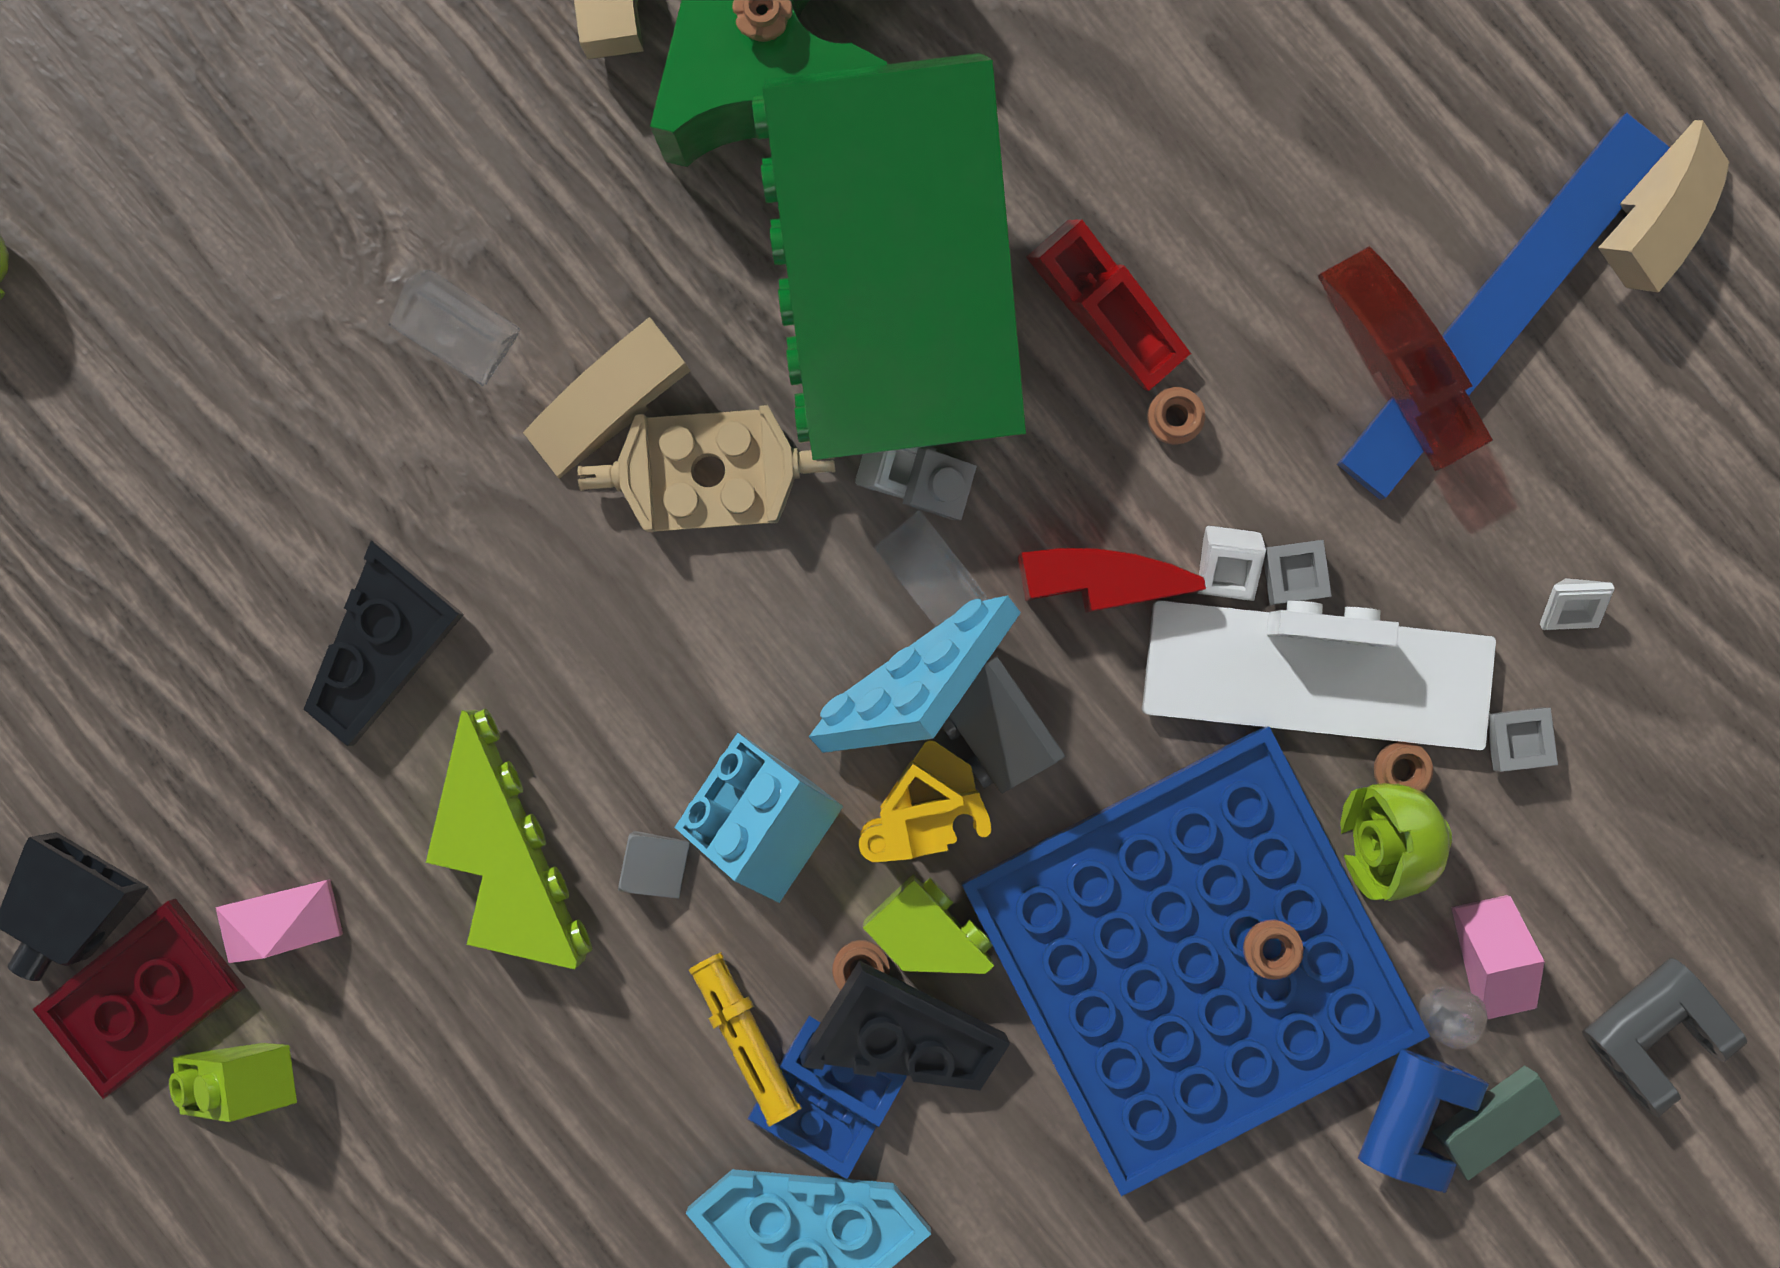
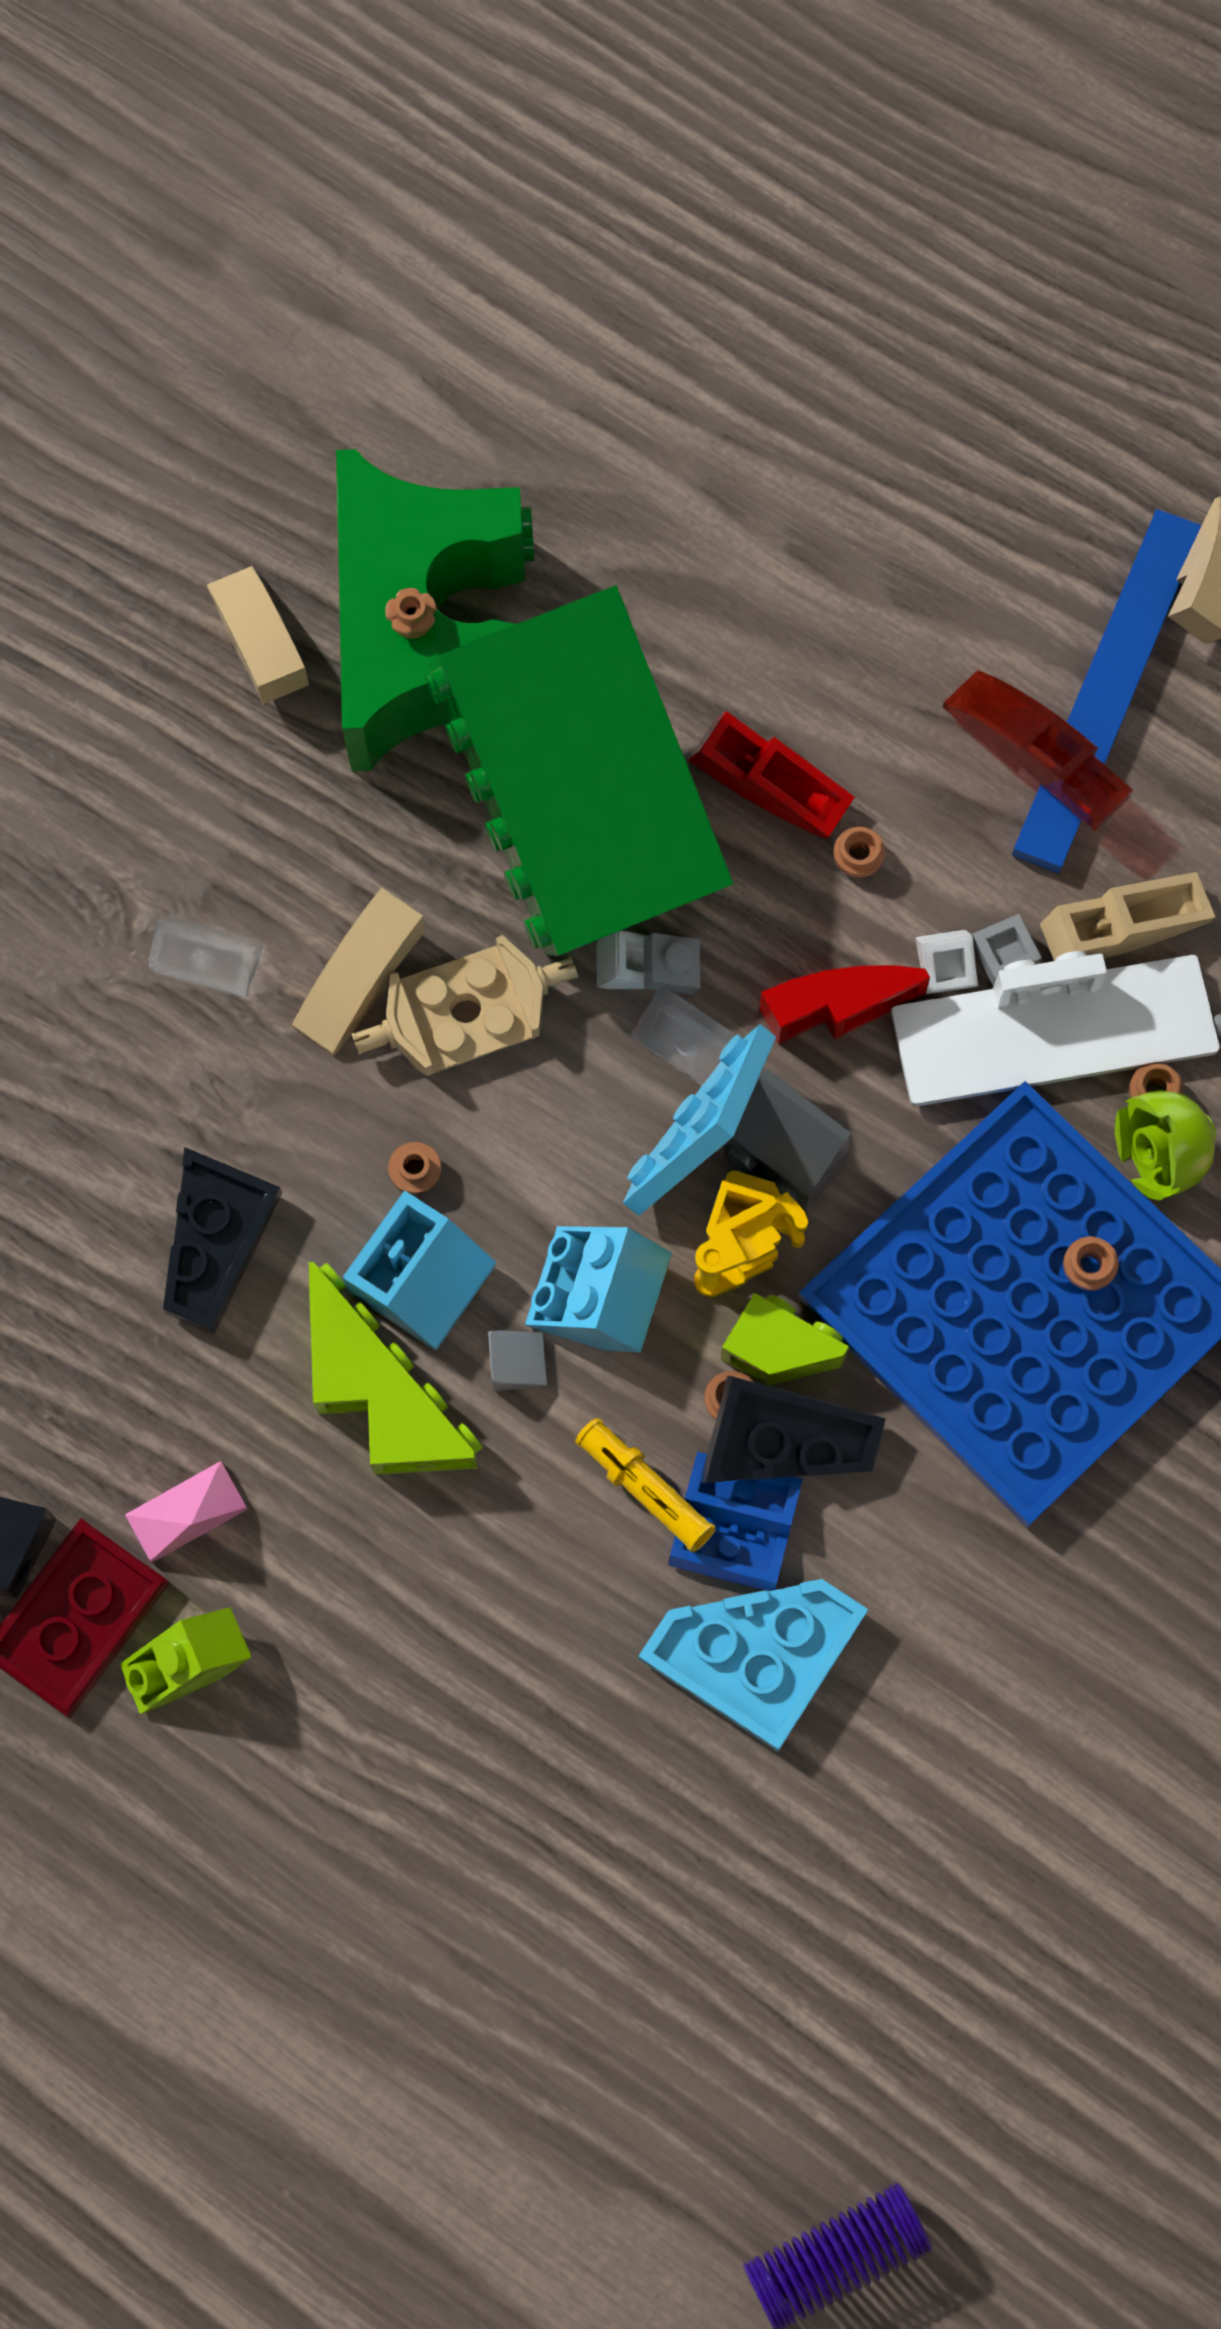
camera: 15 degrees left, 15 degrees down
(575, 749) = (418, 1271): none -> medium azure slope
(623, 635) = (414, 1183): none -> nougat plate
(1436, 577) = (1129, 917): none -> tan slope

